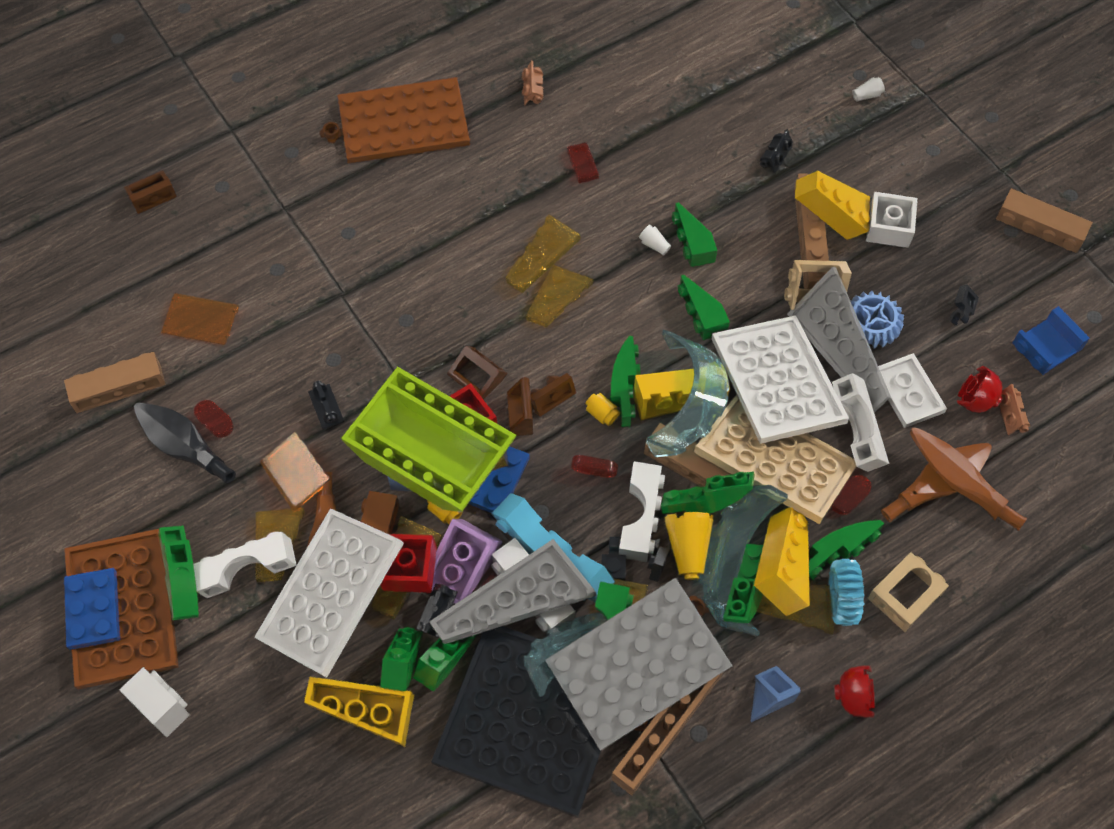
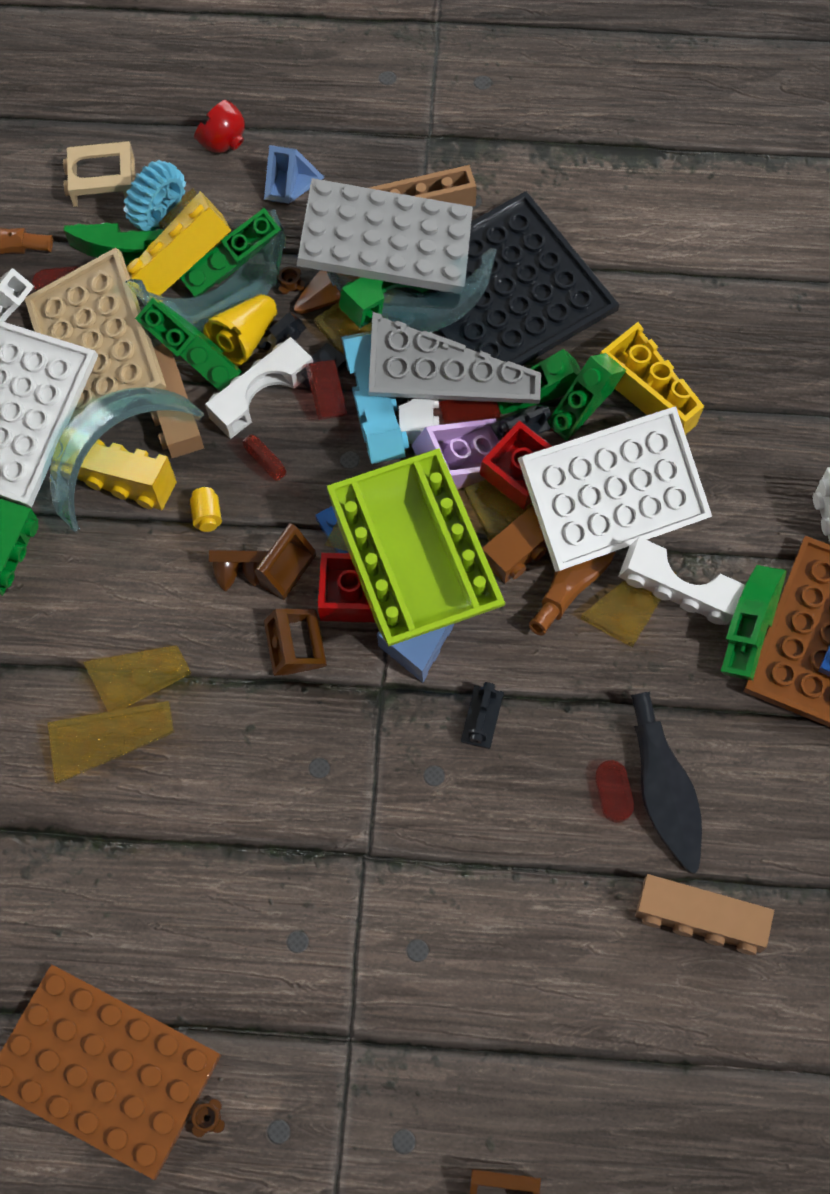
camera: 140 degrees left, 5 degrees up
(200, 318) = (553, 942): clear orange piece -> none
(294, 471) = (566, 653): clear orange piece -> none
(592, 538) = (326, 389): none -> clear red tile
(623, 380) = (150, 531): green slope -> none

